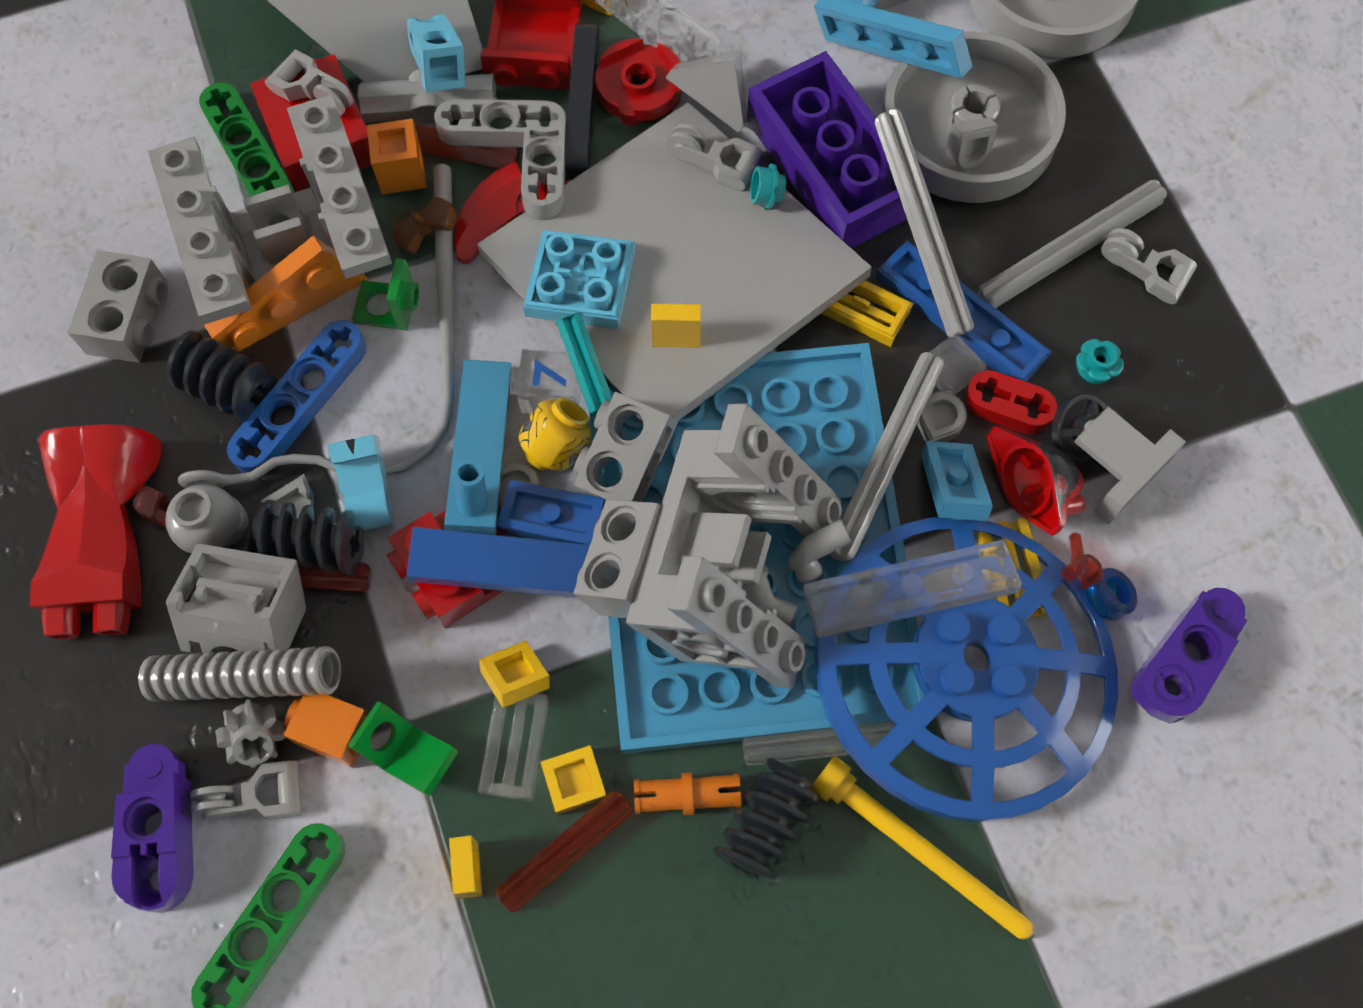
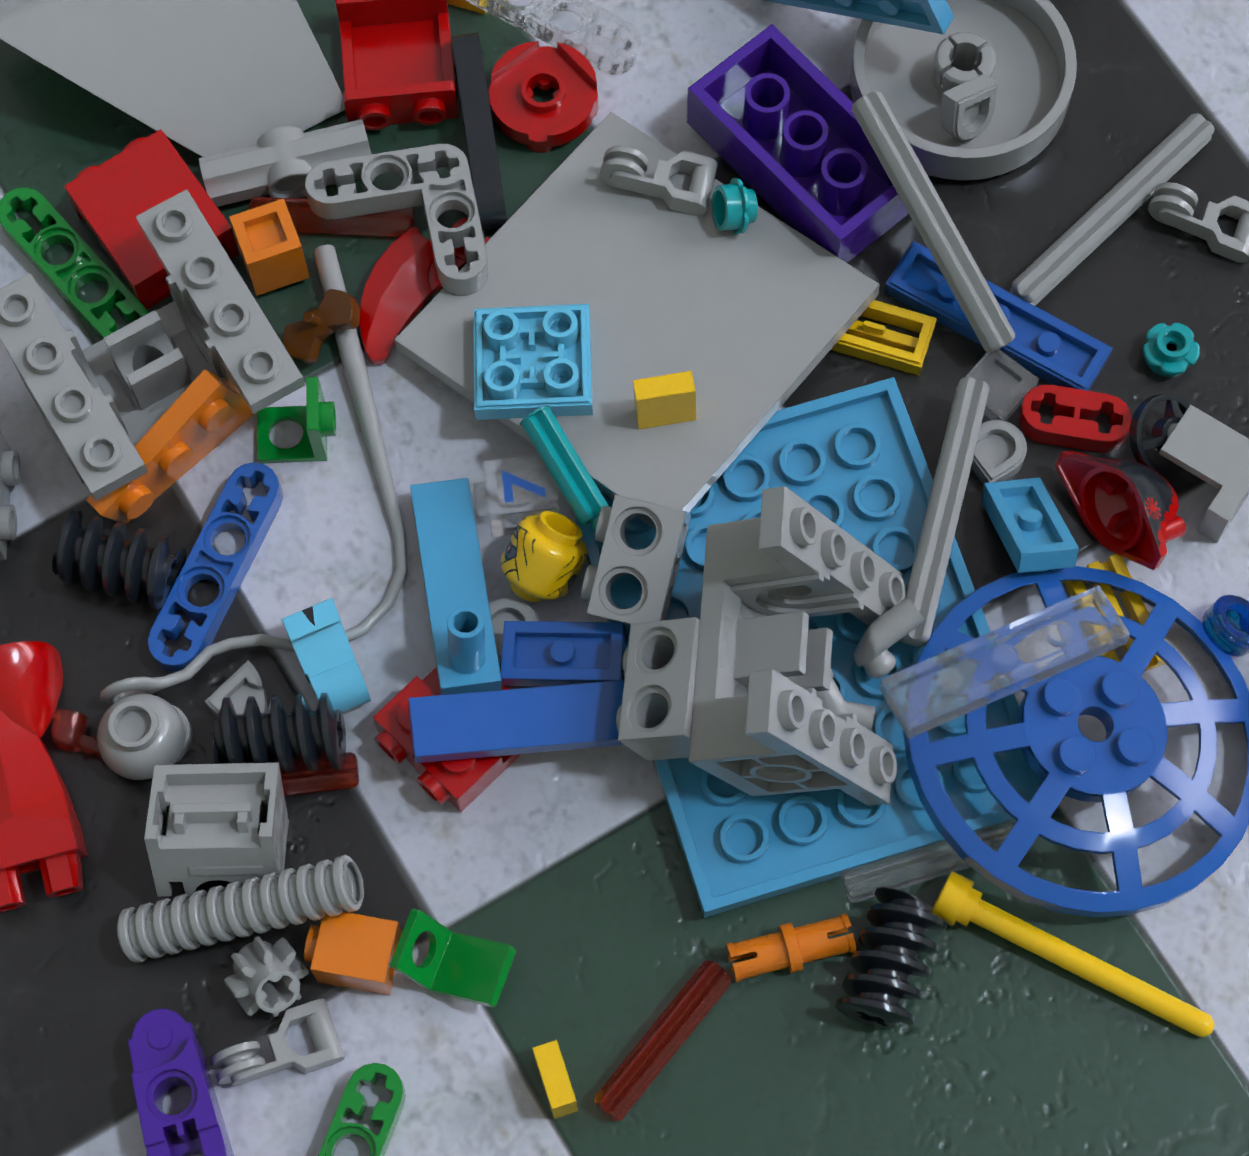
camera: 10 degrees left, 0 degrees up
(311, 84) = (172, 177): light grey piece -> none
(437, 53) = (292, 107): medium azure leg -> none
(507, 788) = (578, 983): clear tile -> none
(514, 673) = (559, 848): yellow tile -> none
(573, 780) = (655, 958): yellow tile -> none
(716, 85) = (641, 86): light grey slope -> none
(1082, 566) = (1194, 598): clear red hand -> none

